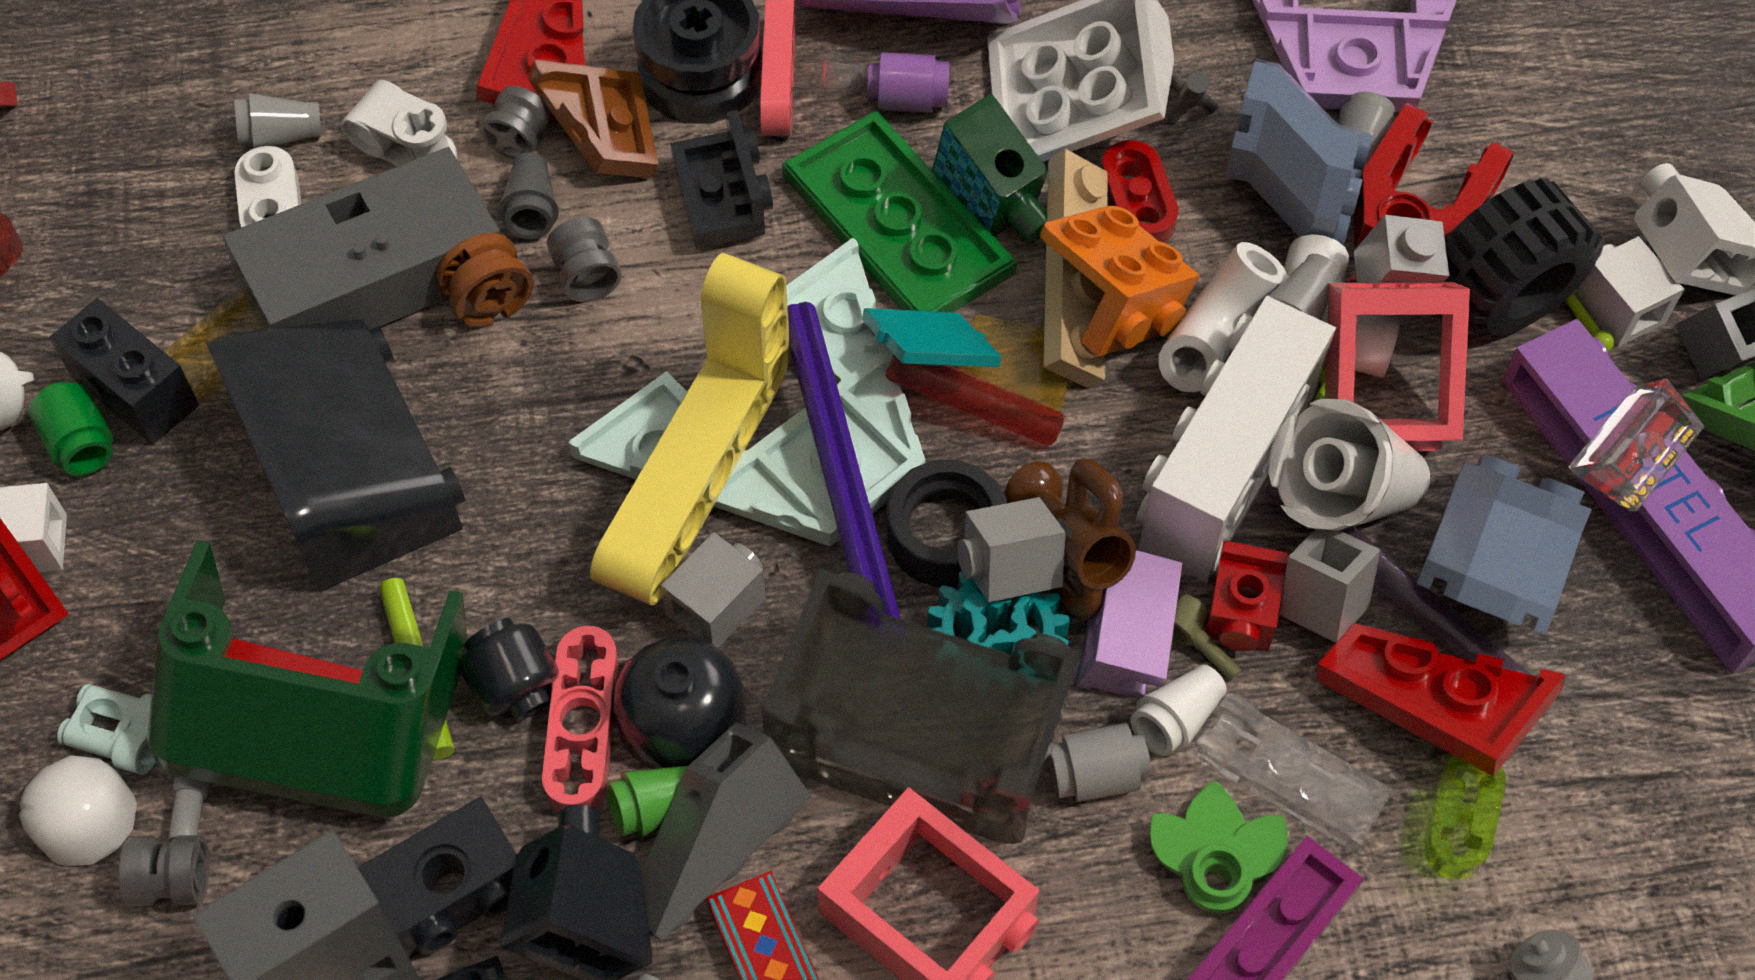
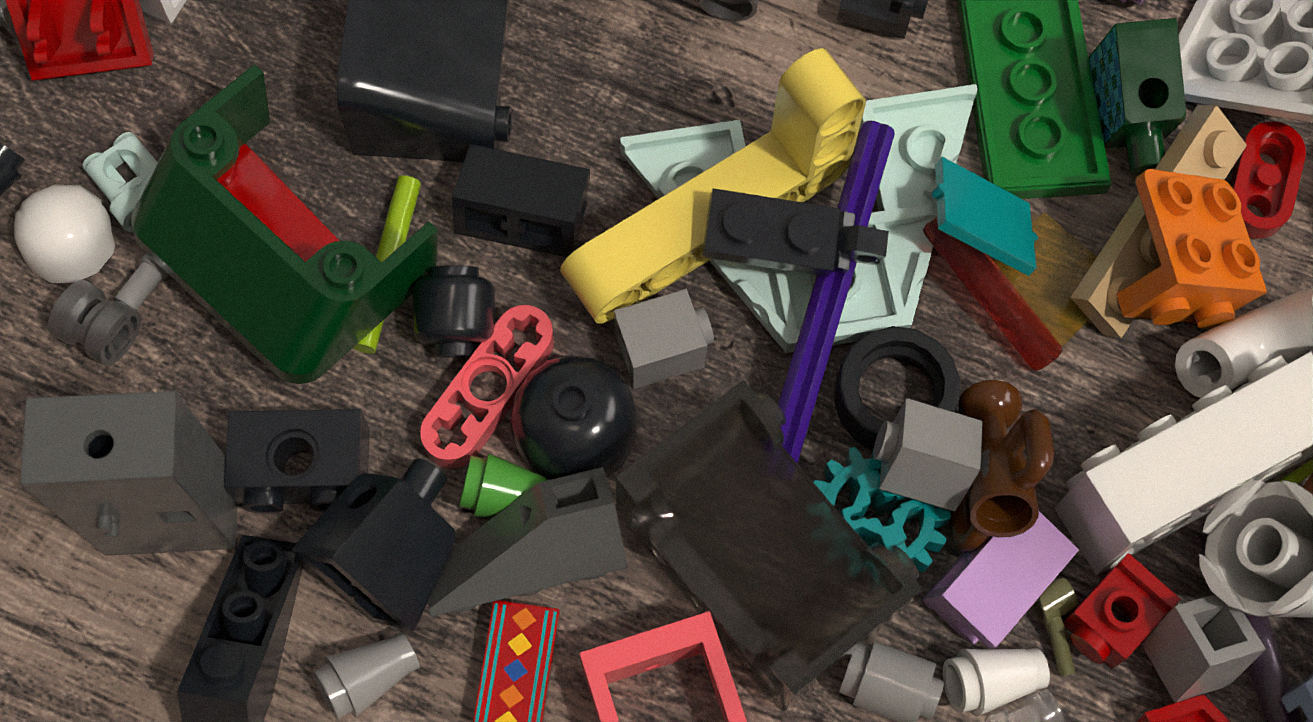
camera: 30 degrees right, 10 degrees up
(511, 544) = (520, 200): none -> black hinge
(778, 434) = (788, 234): none -> black hinge

